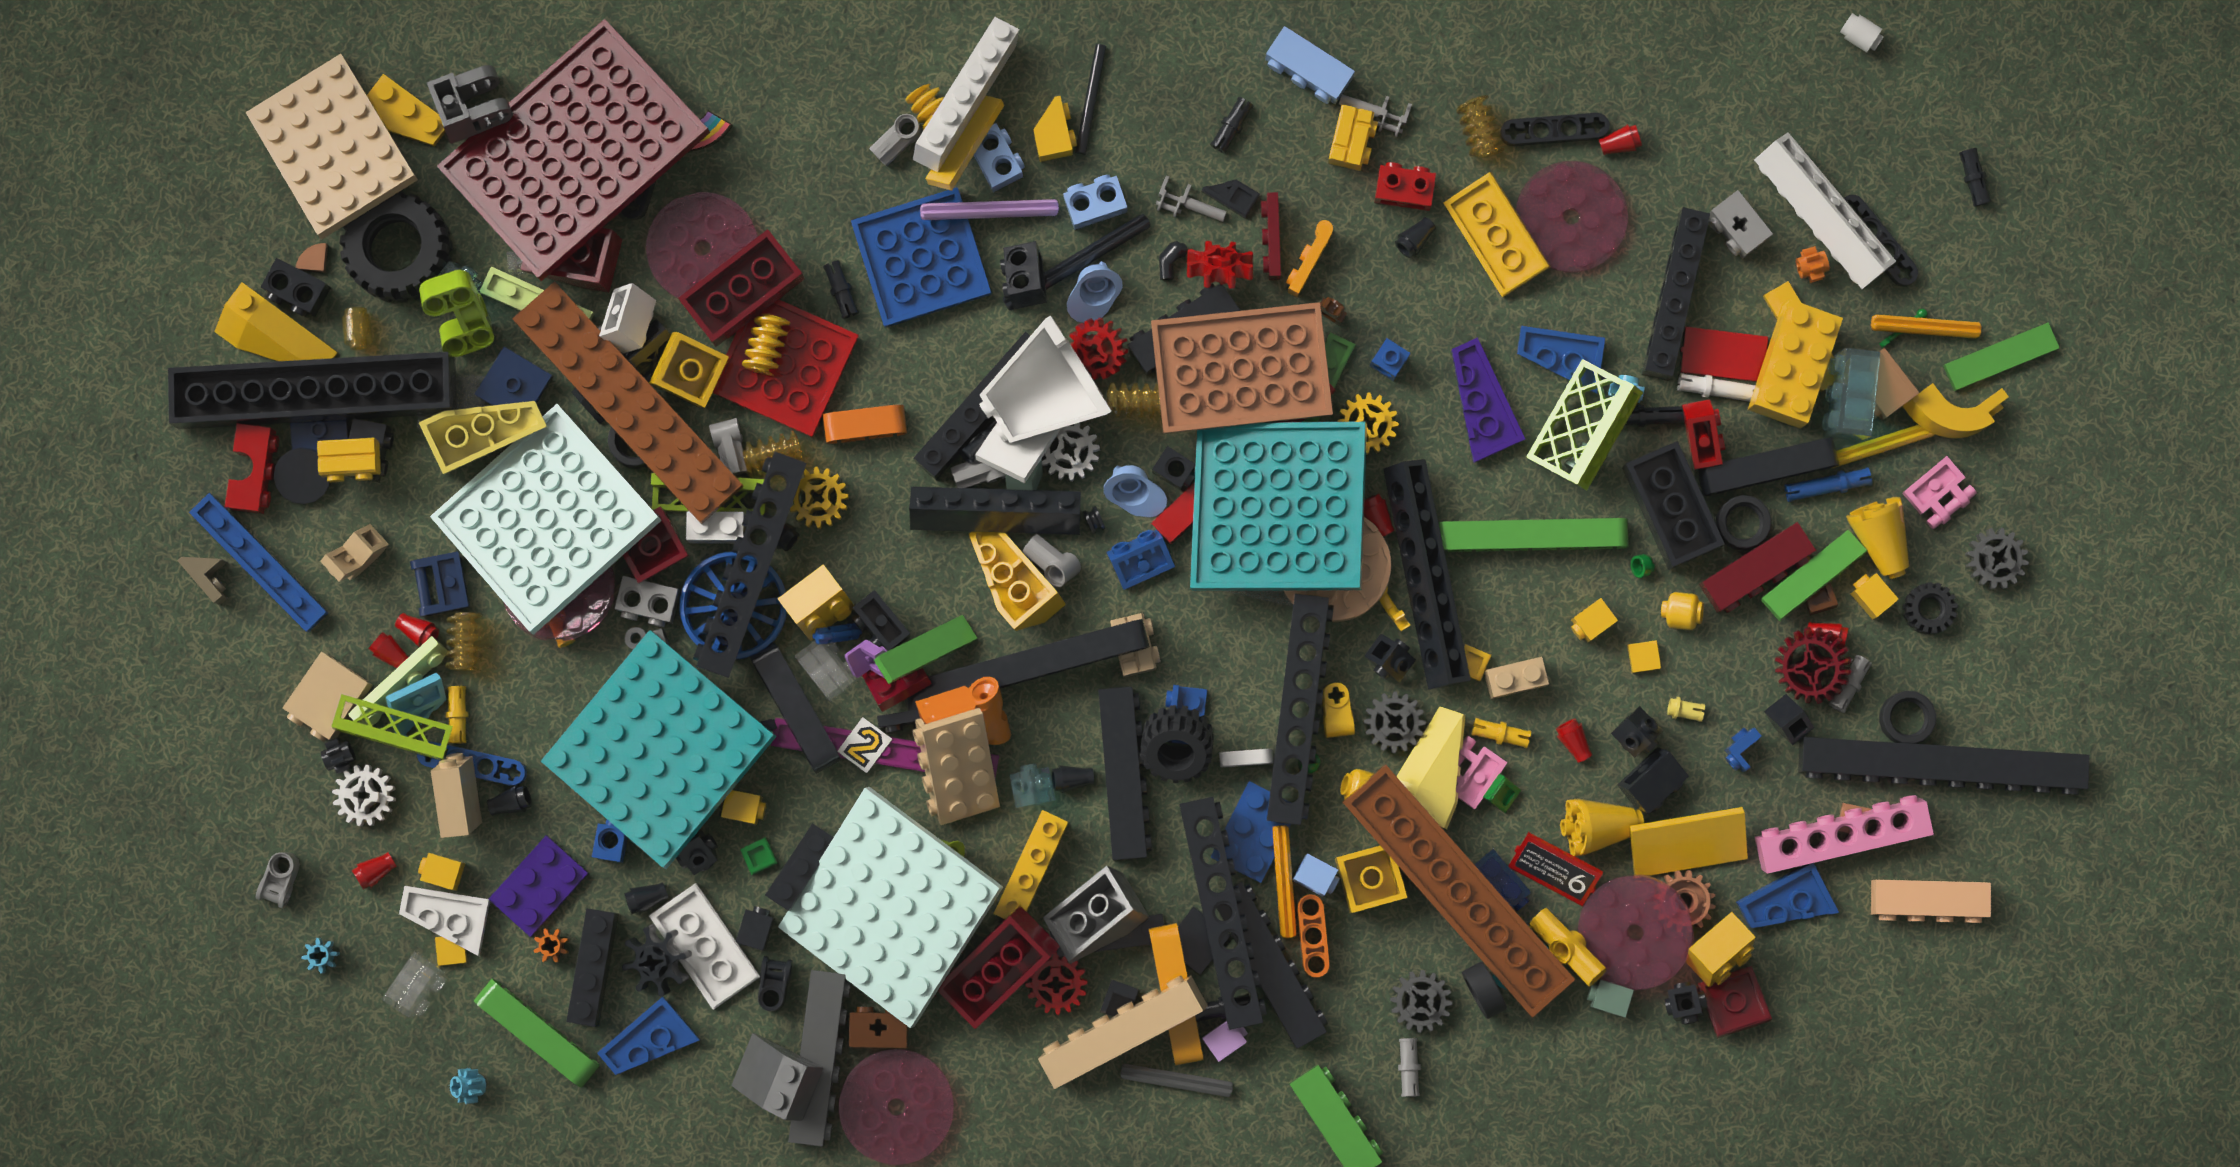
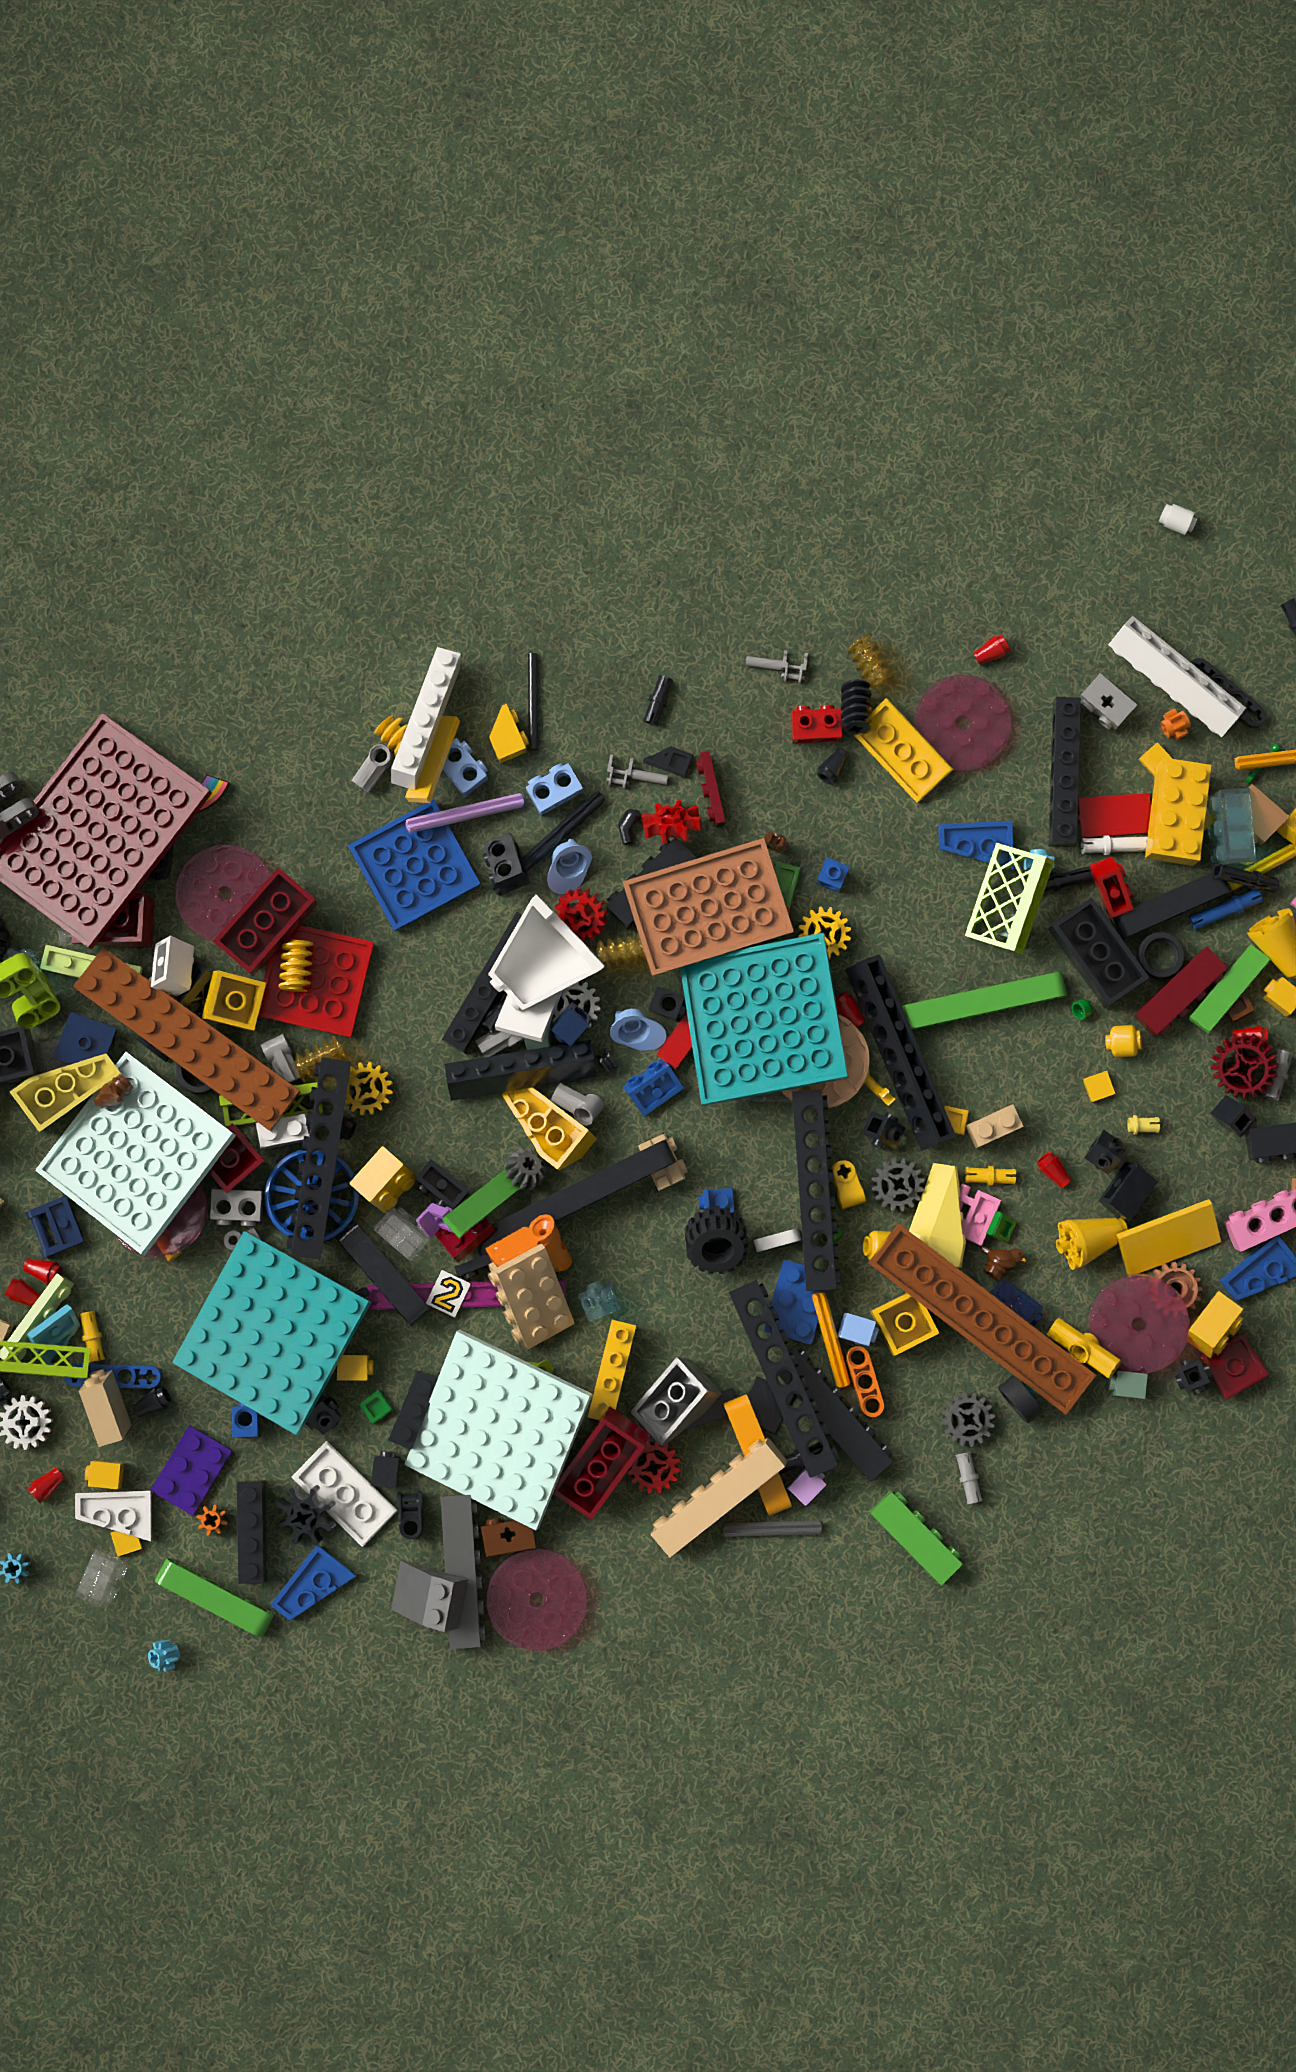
camera: 15 degrees left, 0 degrees up
(463, 641) = (85, 1272): clear yellow piece -> none
(534, 446) = (113, 1092): none -> reddish brown animal
(644, 897) = (284, 1462): black cone -> none
(836, 633) = (405, 1202): blue axle -> none
(841, 289) = (351, 906): black pin -> none
(865, 422) = (394, 1016): orange beam -> none
(978, 622) = (525, 1169): none -> dark grey gear
(1061, 469) = (570, 1024): none -> dark blue brick
(1070, 778) = (630, 1287): black cone -> none
(1117, 996) = (707, 1467): black panel -> none
(1123, 774) = (674, 1274): black brick -> none
(1309, 66) = (713, 637): light blue brick -> none
(1309, 257) = (747, 800): light orange plate -> none
(1351, 138) = (762, 691): yellow brick -> none
(1454, 175) = (856, 707): none -> black piece
(1485, 408) = (921, 899): dark purple wing -> none
(1494, 831) = (1001, 1261): none -> reddish brown animal
(1553, 124) = (931, 647): black beam -> none
(1555, 869) = (1060, 1283): piece -> none
(1593, 621) = (1049, 1064): yellow brick -> none
(1742, 741) = (1196, 1143): blue bracket -> none
(1865, 457) = (1254, 880): none -> black pin

